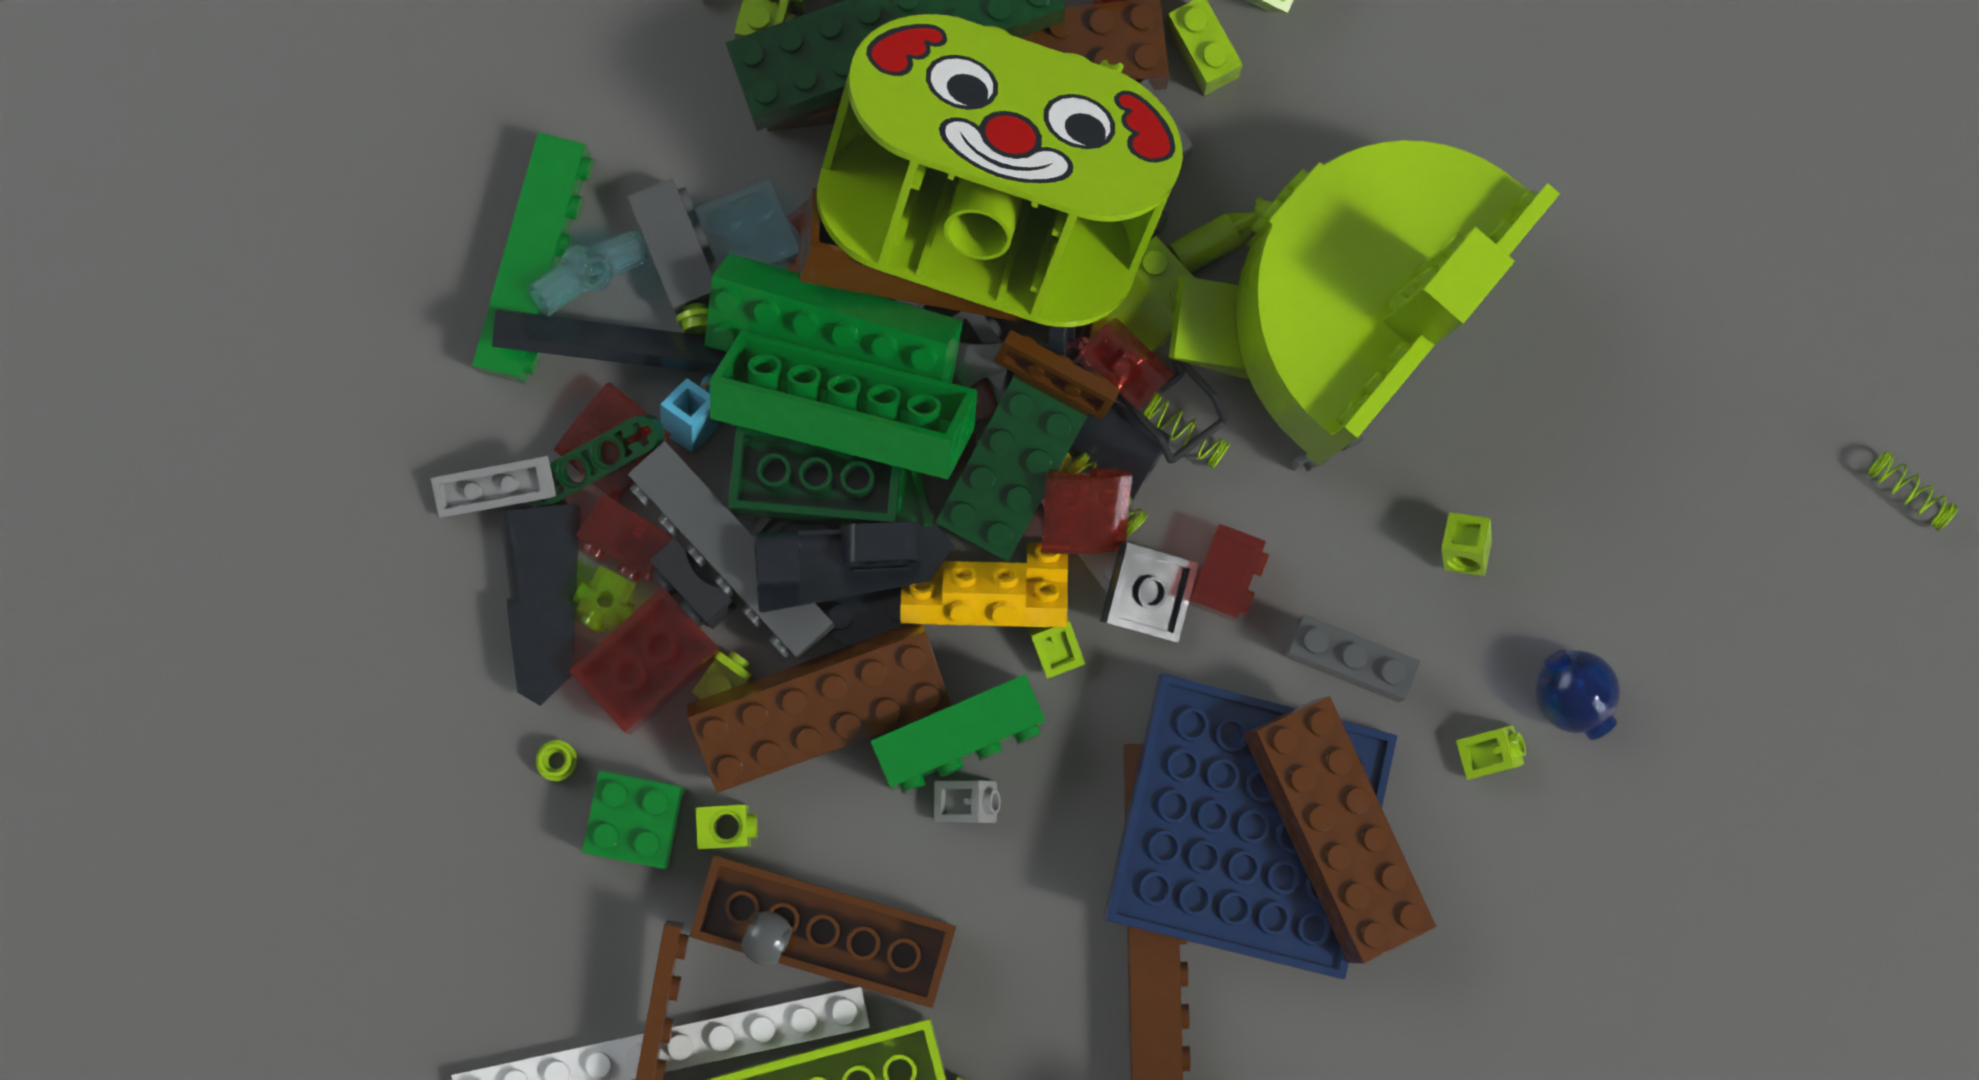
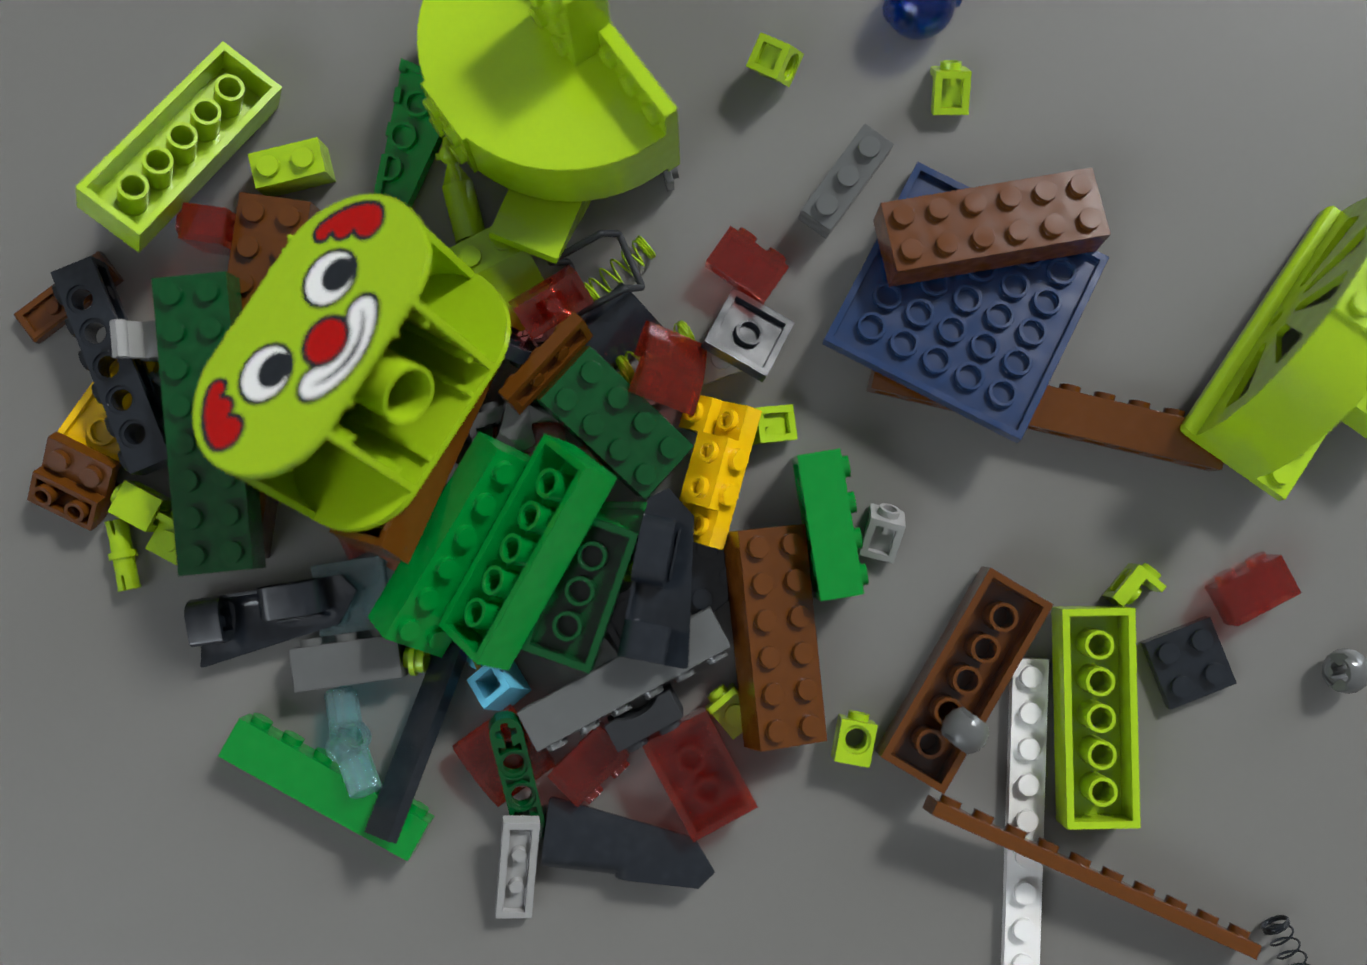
camera: 75 degrees left, 5 degrees up
(543, 760) = (767, 876): lime plate -> none
(607, 585) = (628, 785): clear neon green brick -> none
(633, 820) = (830, 815): green brick -> none
(702, 144) = (266, 616): none -> black panel
(1262, 165) = (410, 140): none -> green wing

